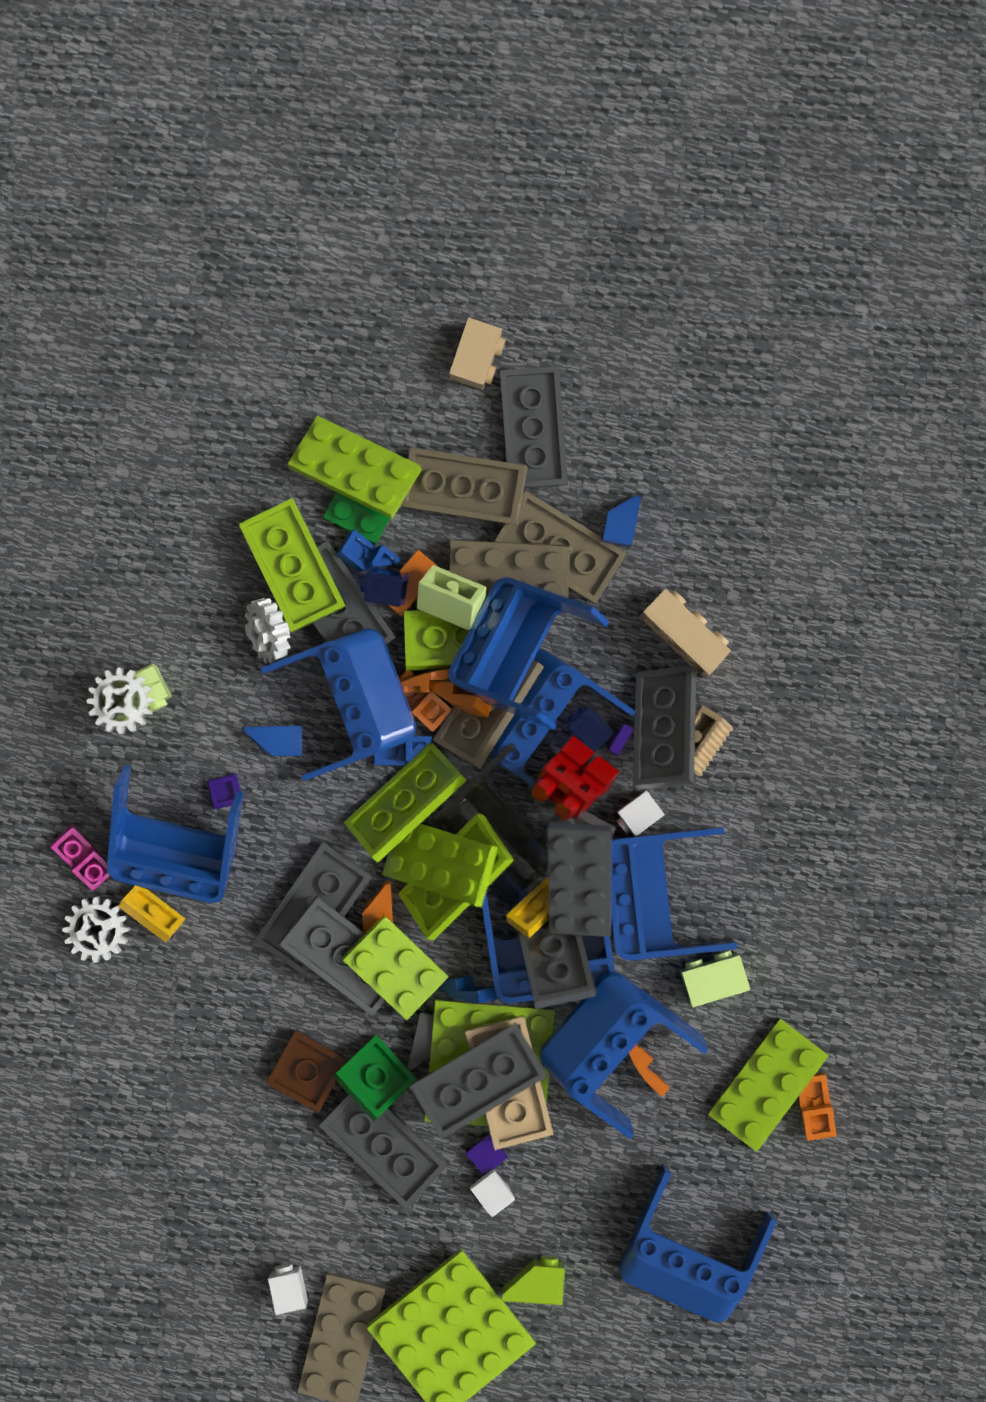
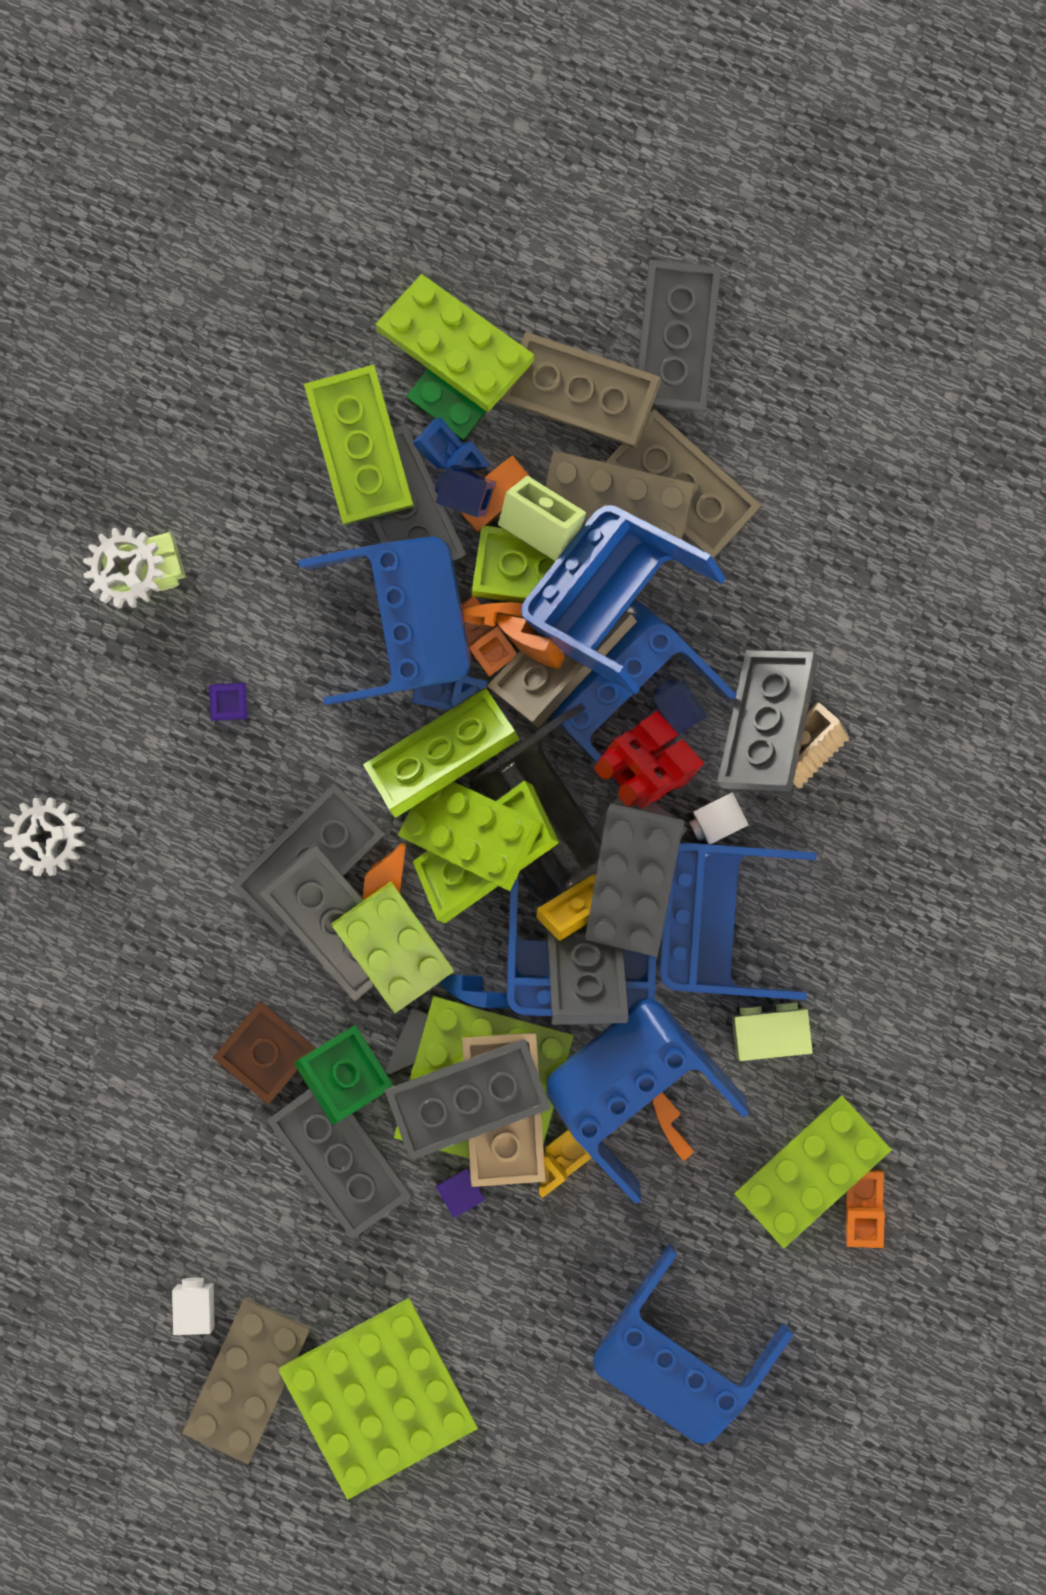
camera: 10 degrees right, 0 degrees up
(81, 856) = (43, 748): dark pink slope -> none
(151, 912) = (114, 829): yellow plate -> none
(169, 854) = (146, 763): blue windscreen -> none
(267, 630) = (314, 517): white gear -> none
(277, 739) = (301, 651): blue slope -> none
(476, 354) = (625, 234): tan brick -> none
(492, 1193) = (459, 1239): white slope -> none
(537, 1283) = (493, 1356): lime slope -> none
(563, 1113) = (560, 1160): none -> yellow slope
(620, 739) = (711, 726): dark purple tile -> none
(621, 523) = (762, 468): blue slope -> none
(686, 632) = (813, 612): tan slope -> none

